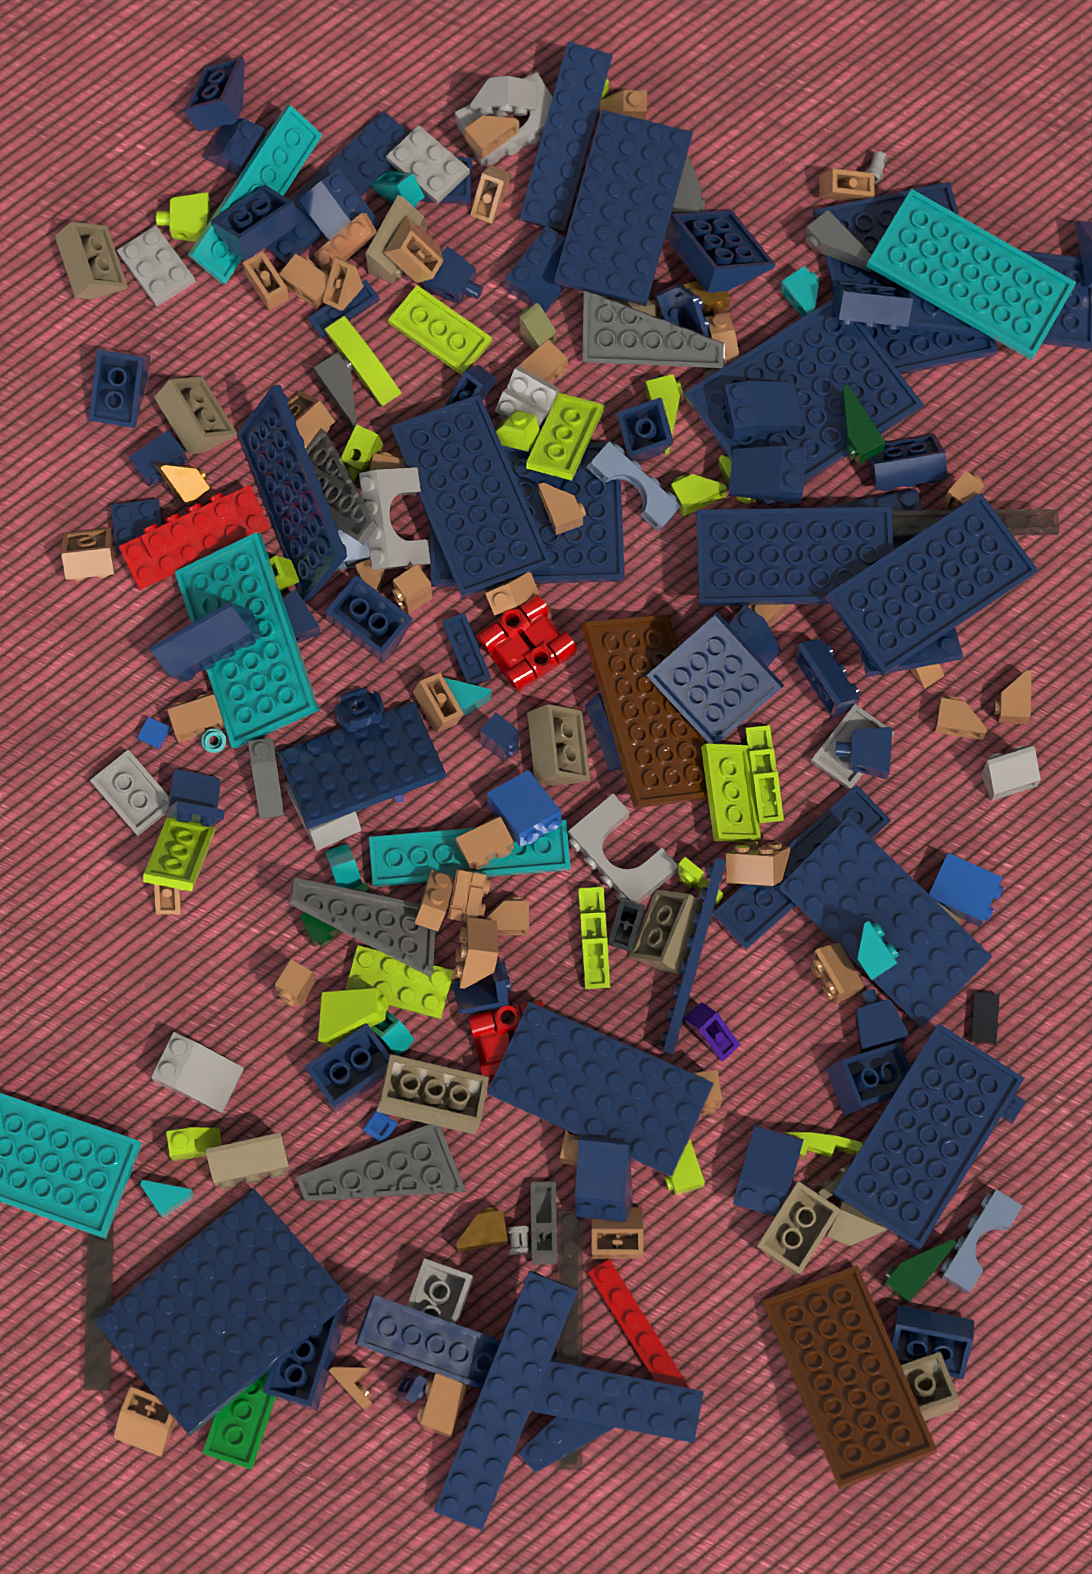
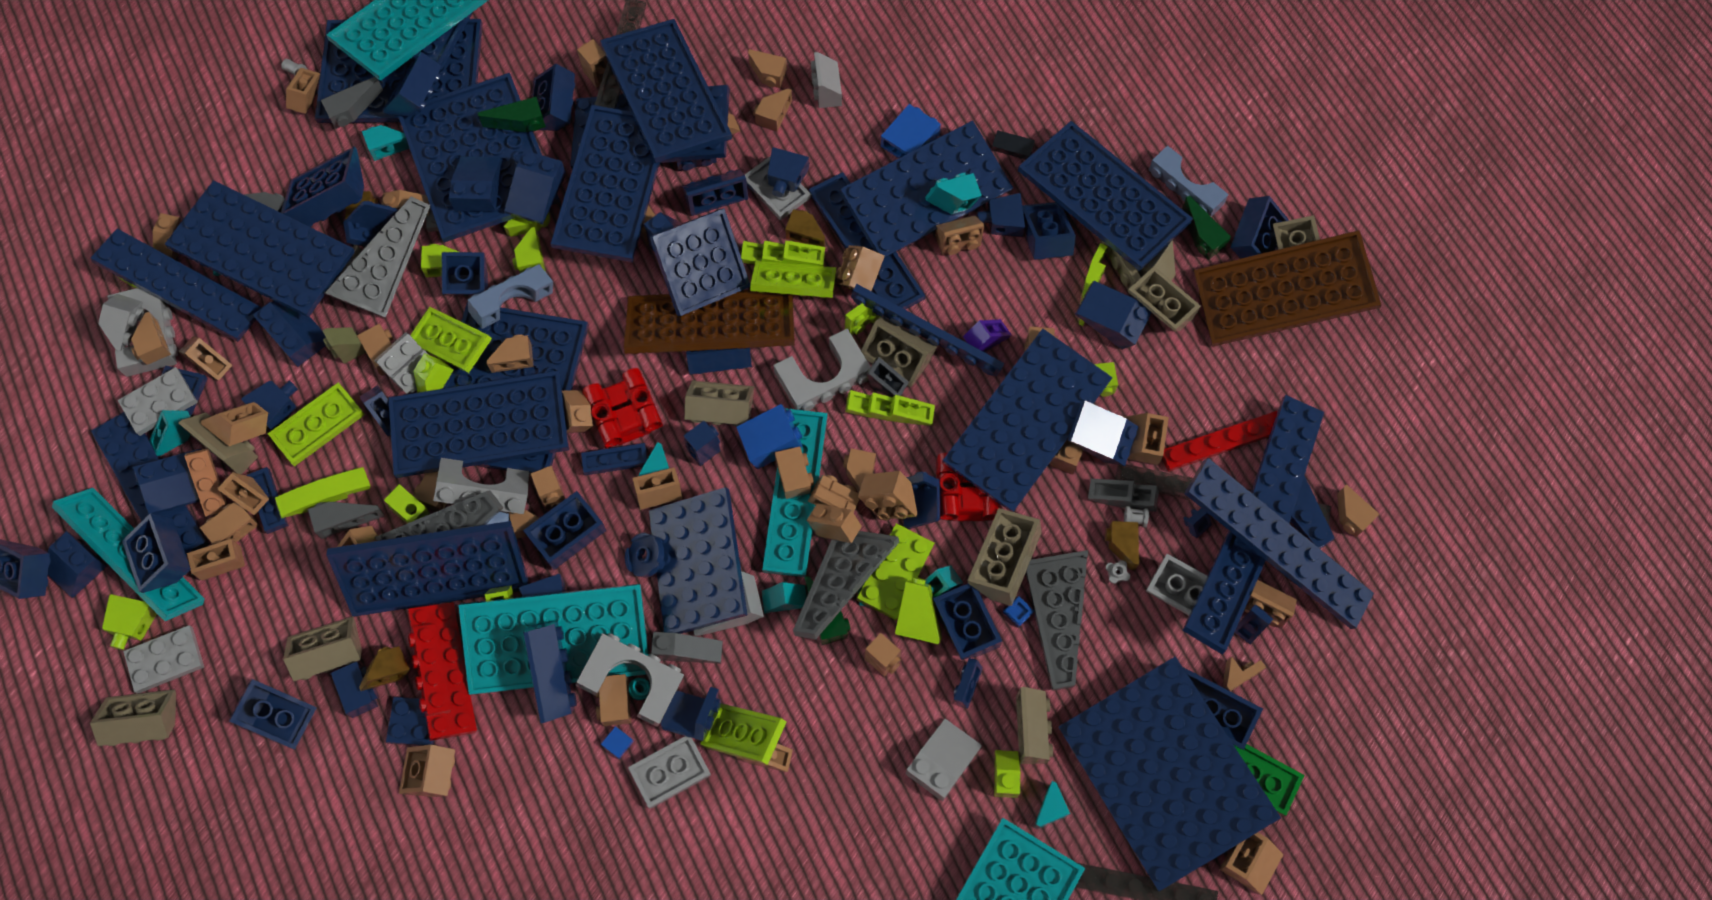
camera: 80 degrees left, 5 degrees down
(223, 760) = (611, 653): none -> light grey arch
(284, 1083) = (970, 676): none -> dark blue plate
(451, 1223) = (1113, 576): none -> light grey plate
(577, 1497) = (1354, 512): none -> medium nougat slope
(803, 791) = (804, 229): none -> pearl gold slope

